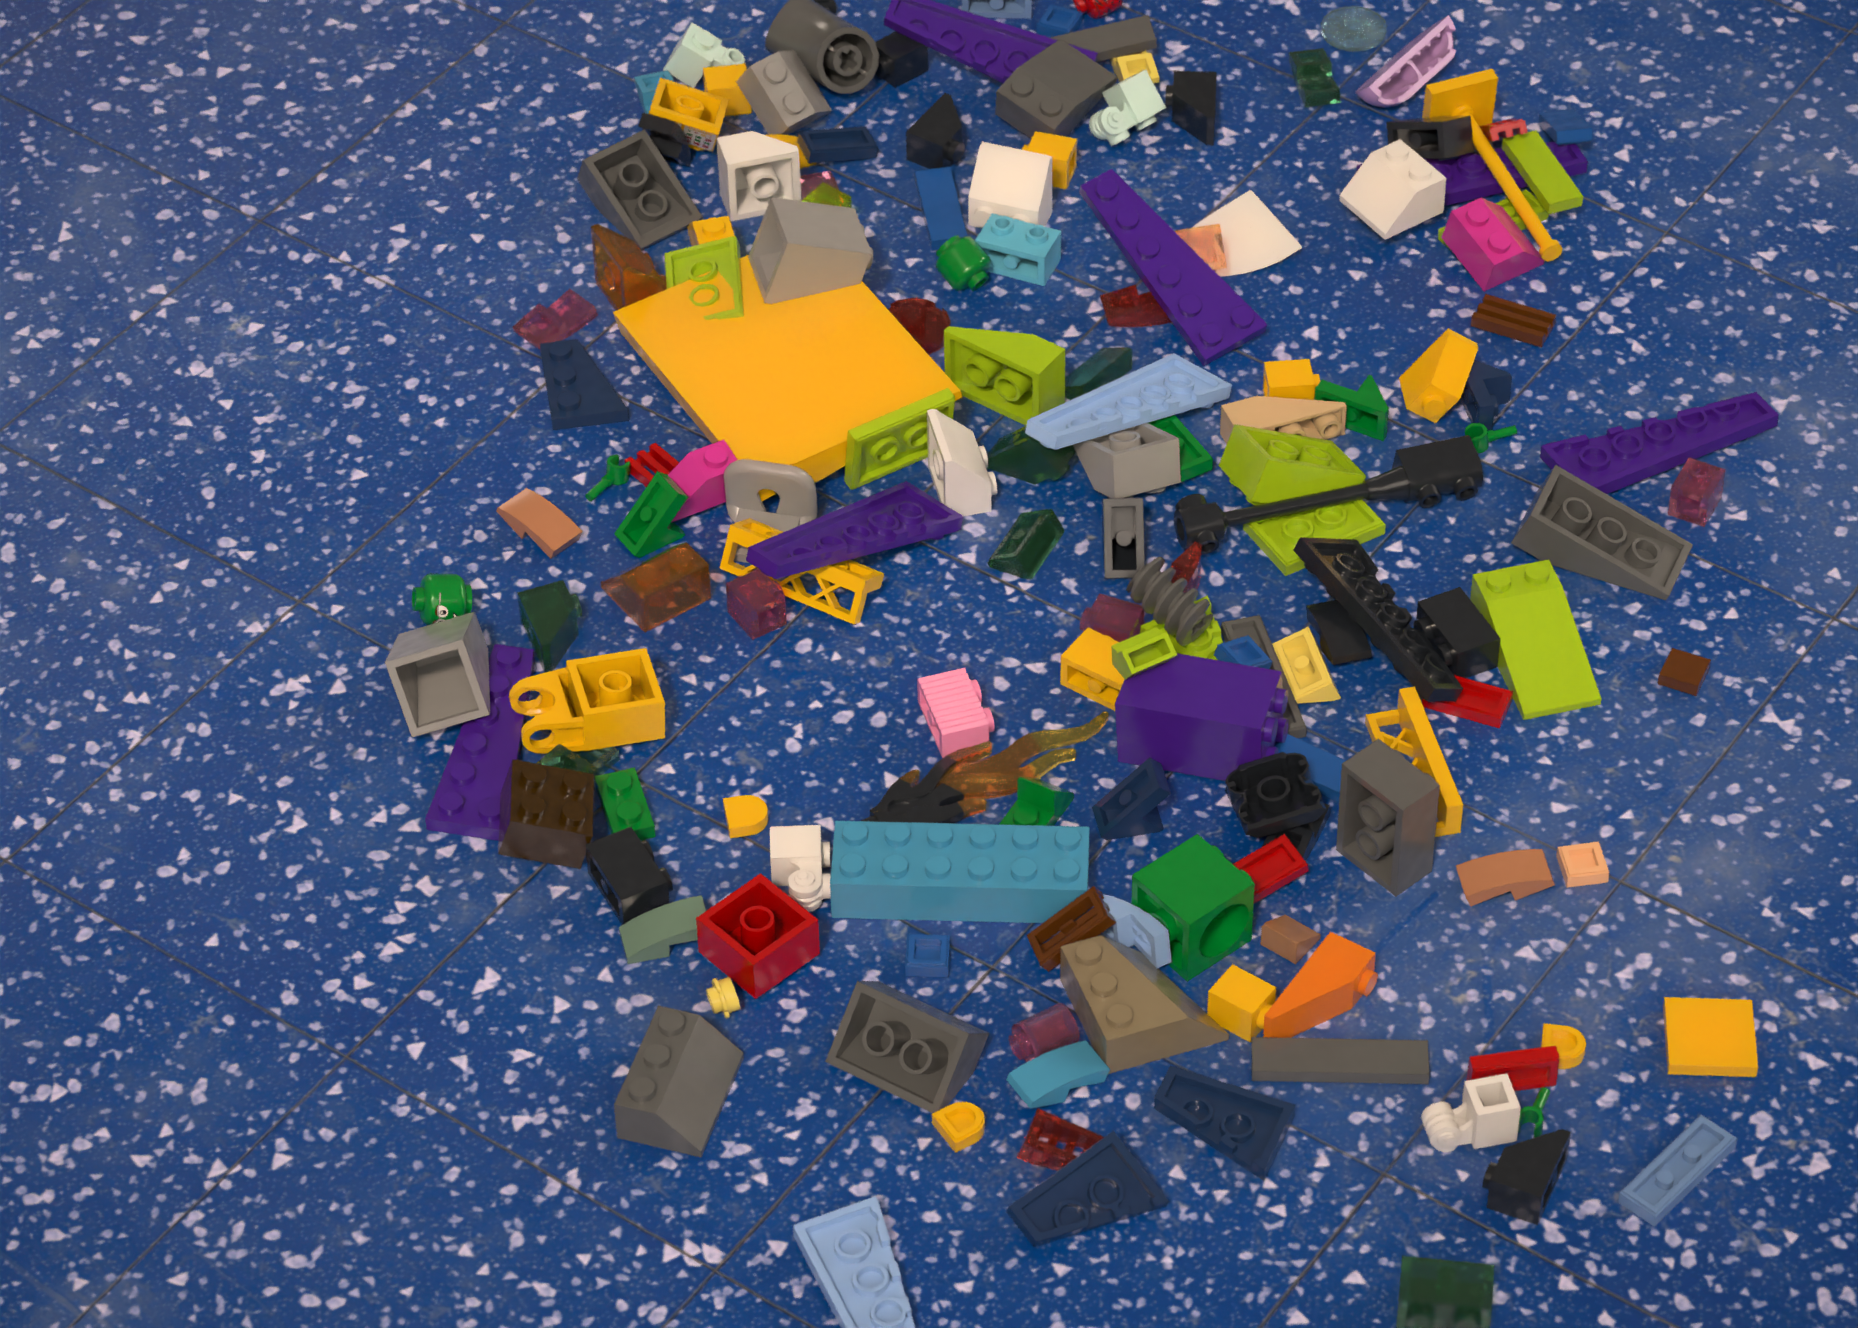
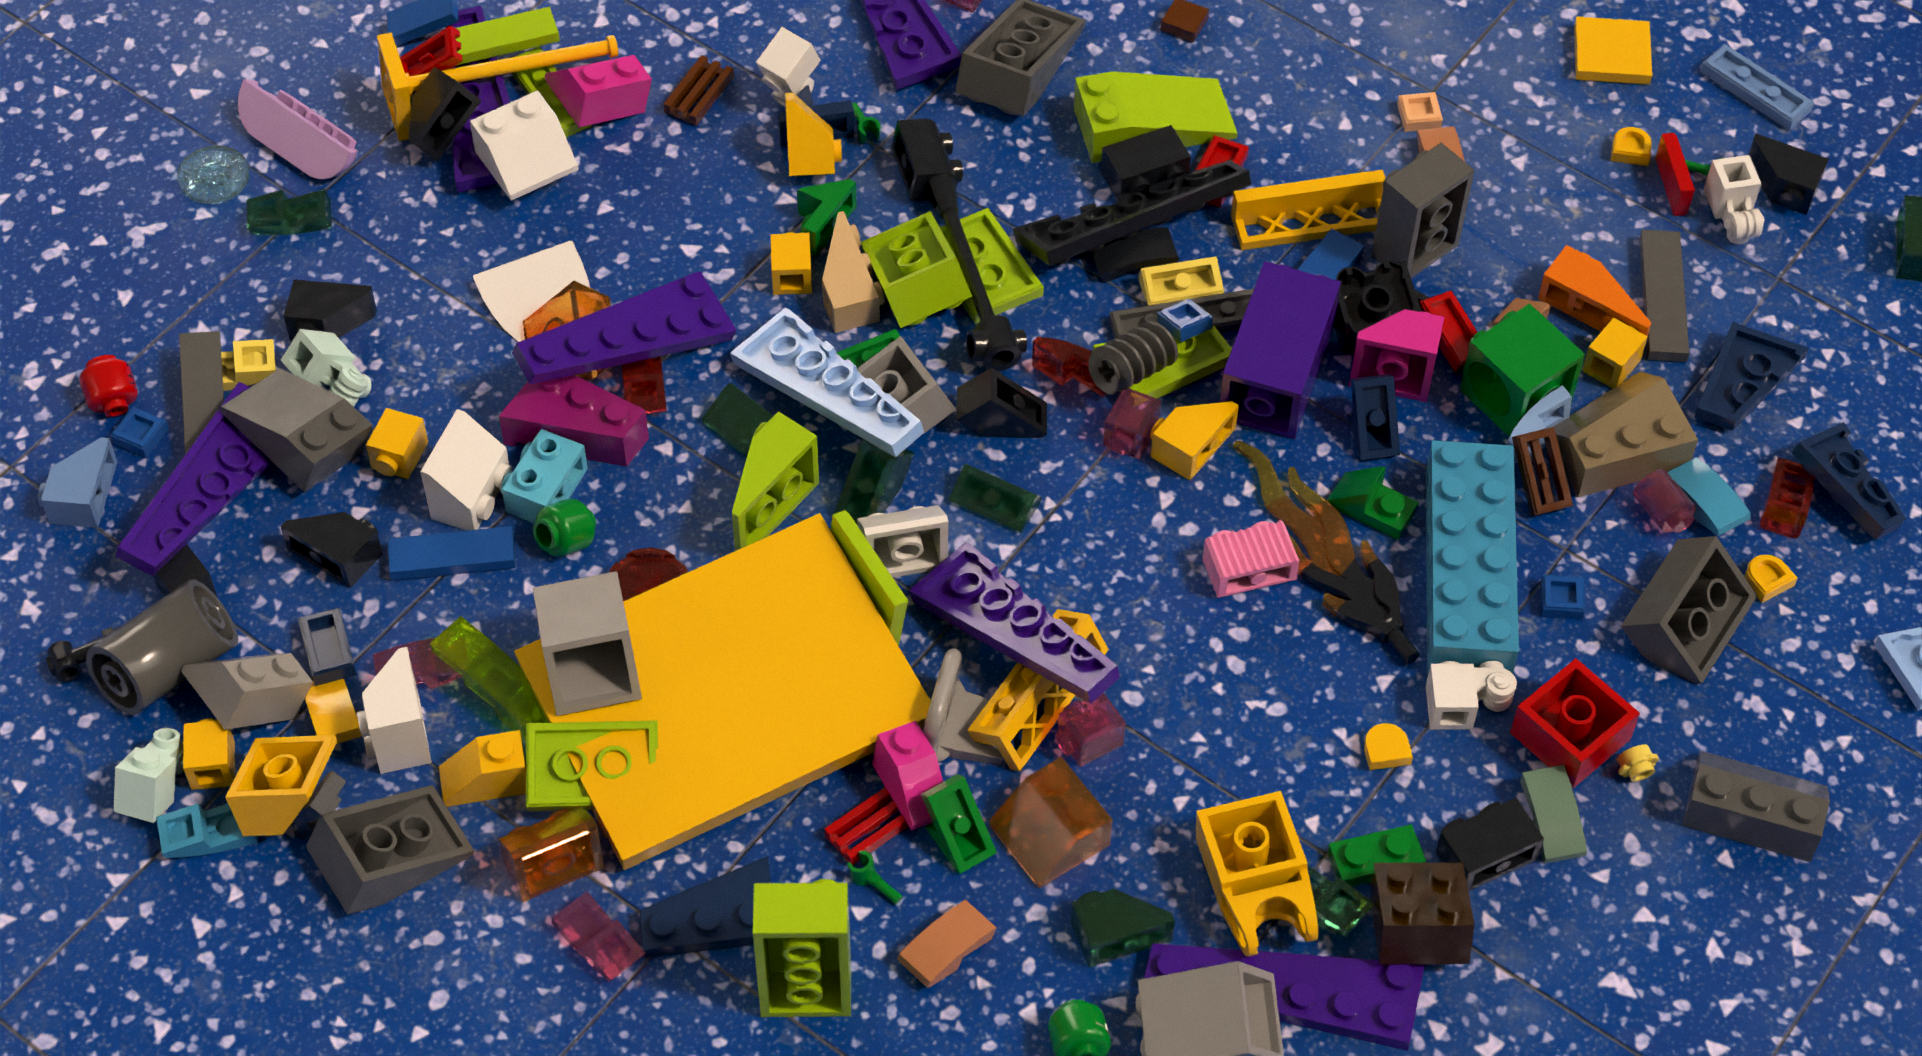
camera: 90 degrees left, 10 degrees up
(497, 391) = (802, 949): none -> lime brick
(1083, 263) = (580, 412): none -> magenta wedge
(1142, 652) = (1251, 360): lime piece -> none
(1208, 805) = (1400, 347): none -> dark pink slope
(1524, 351) = (787, 64): none -> white brick

